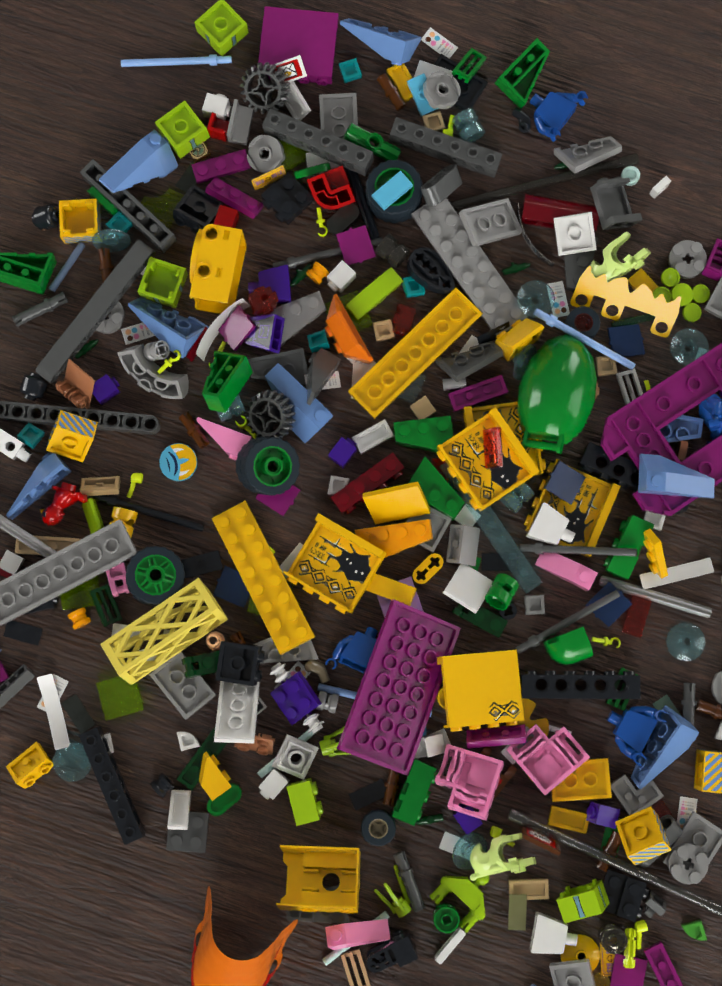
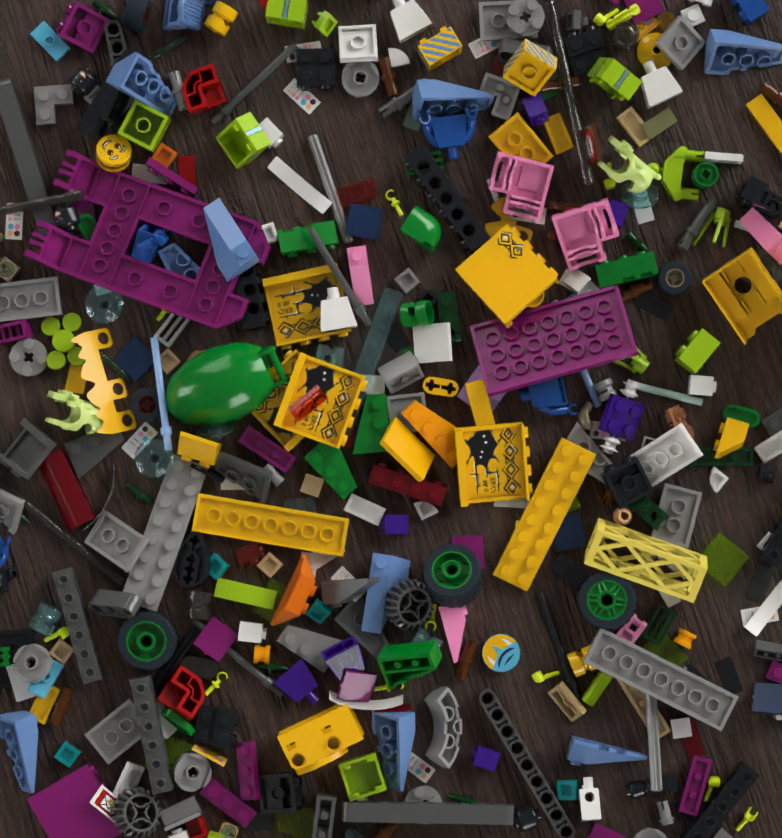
camera: 125 degrees left, 5 degrees up
(63, 498) = (598, 723): red animal -> none
(71, 436) = (544, 753): yellow container -> none
(76, 386) = (500, 781): nougat hinge -> none
(156, 350) = (423, 738): light grey wheel -> none
(169, 362) = (426, 720): neon yellow hand -> none
(226, 217) = (272, 763): red panel -> none
(258, 305) = (327, 679): clear red brick -> none
(289, 747) = (660, 391): white piece -> none
(362, 137) = (118, 676): green piece -> none
(392, 190) = (151, 640): medium azure tile -> none
(496, 736) = (535, 236): magenta plate -> none
(534, 641) = (436, 260): dark grey bar -> none
(564, 482) = (291, 326): dark blue piece -> none
(575, 233) = (77, 464): white tile -> none
(655, 554) = (299, 213): yellow plate -> none
(676, 638) = (349, 149): clear light blue dish -> none
(681, 450) = (196, 250): nougat tile -> none

